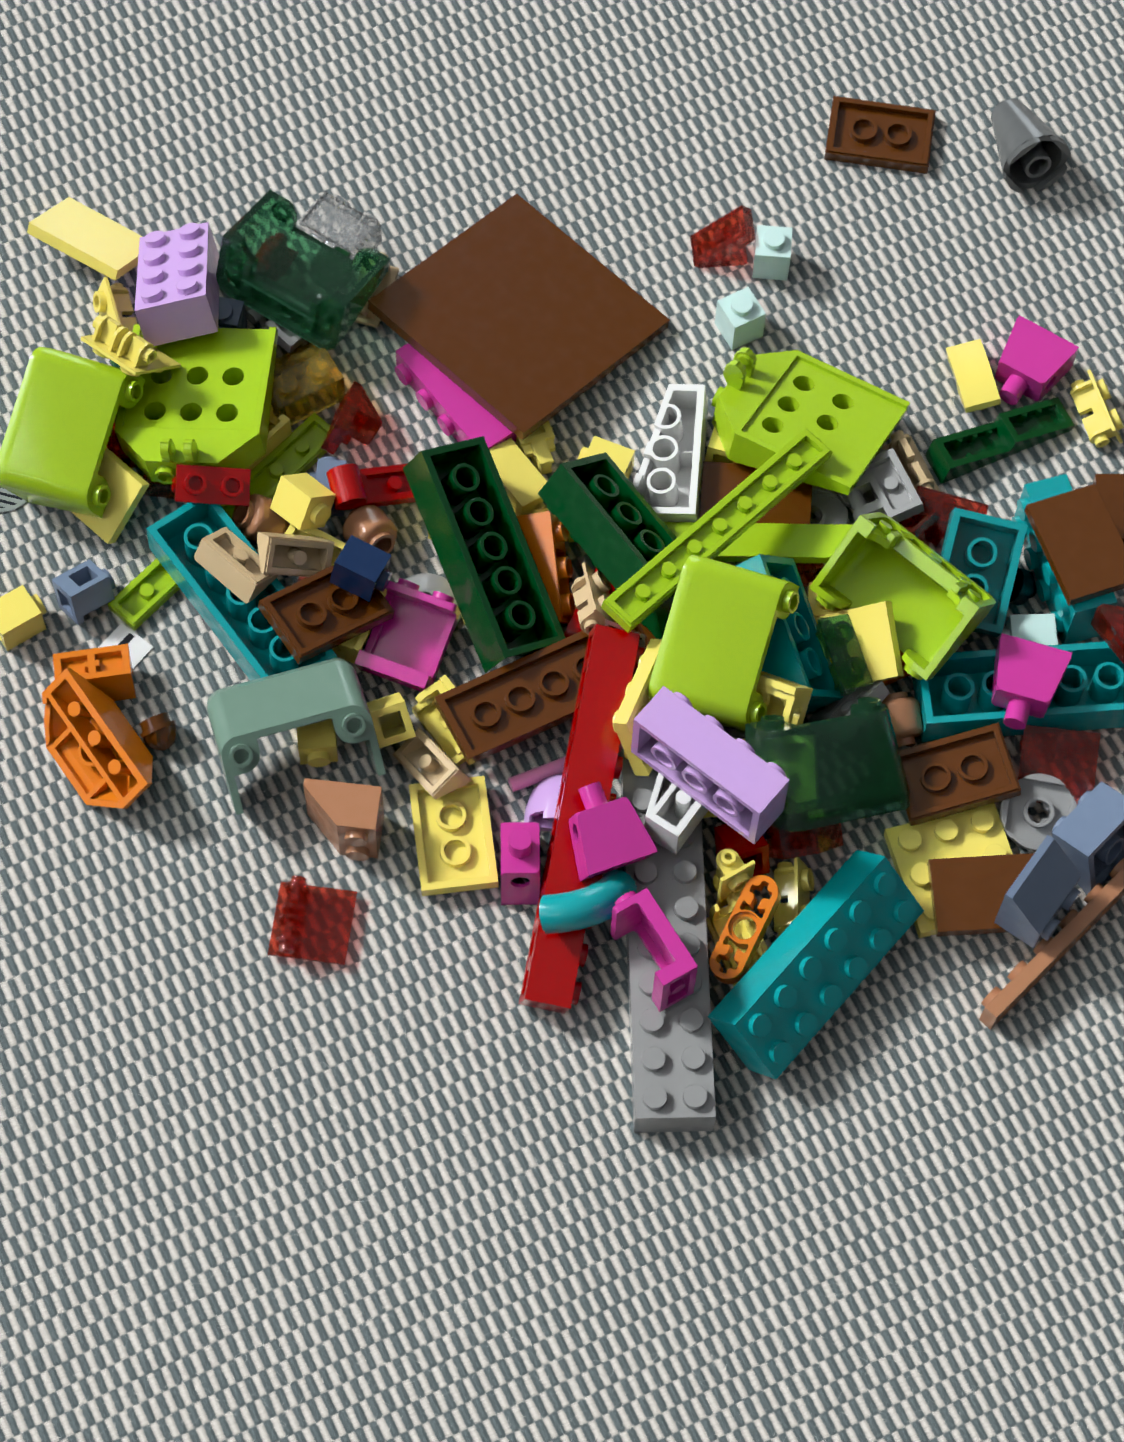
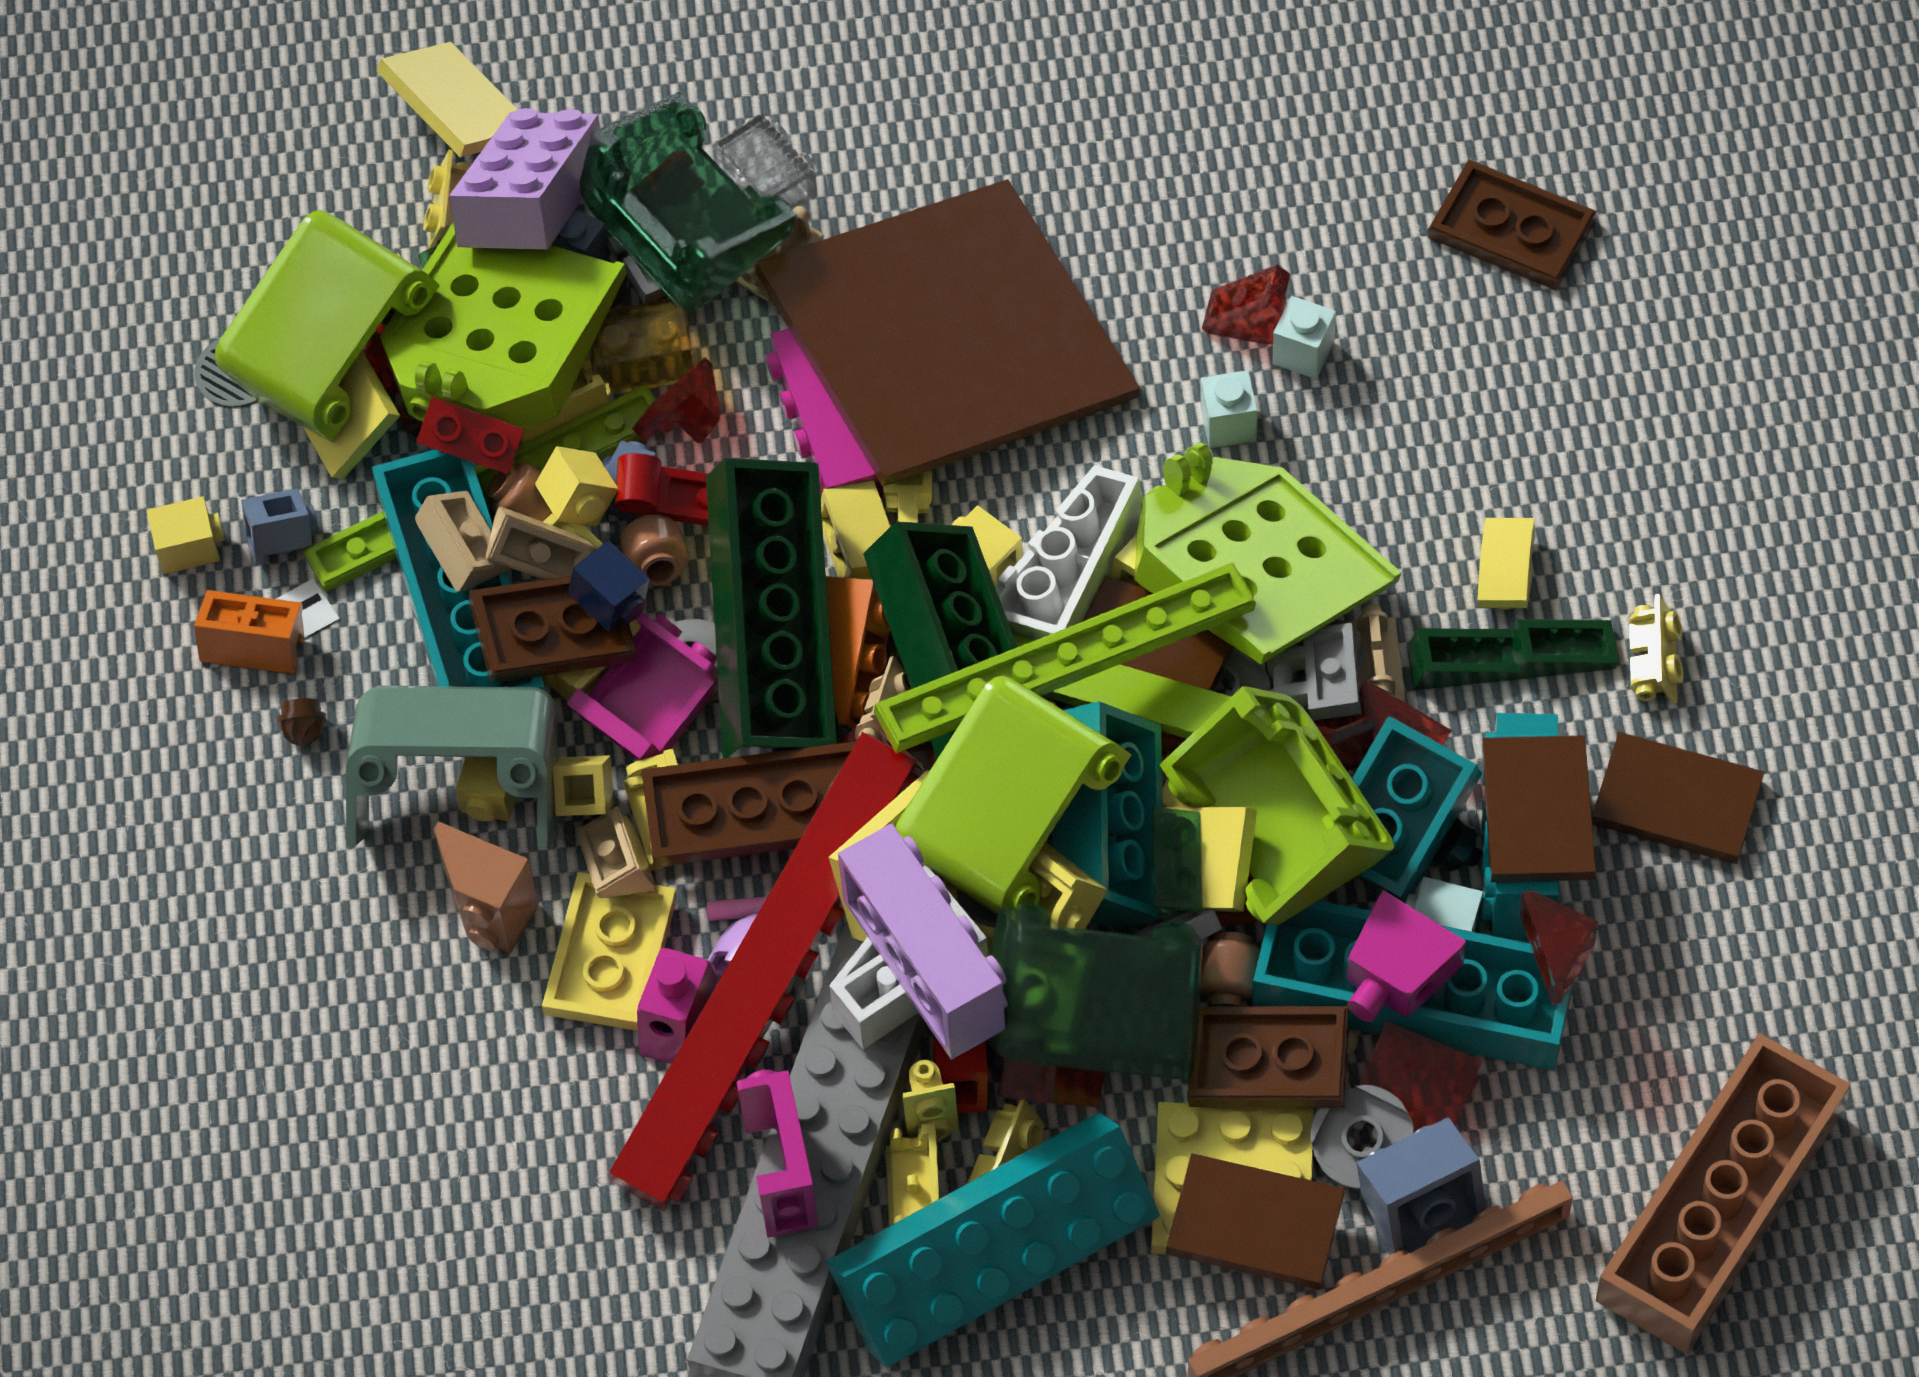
camera: 25 degrees right, 5 degrees down
(94, 743) = (217, 709): orange wedge -> none
(126, 348) = (427, 241): light yellow hinge -> none
(312, 922) = (397, 1006): clear red hinge -> none
(584, 906) = (714, 1076): teal cylinder -> none
(607, 834) = (780, 996): dark pink torso -> none
(766, 907) = (917, 1146): orange beam -> none
(1027, 147) = (1693, 290): dark grey cone -> none
(1032, 362) = (1591, 566): dark pink torso -> none
(1039, 894) = (1304, 1232): sand blue slope -> none

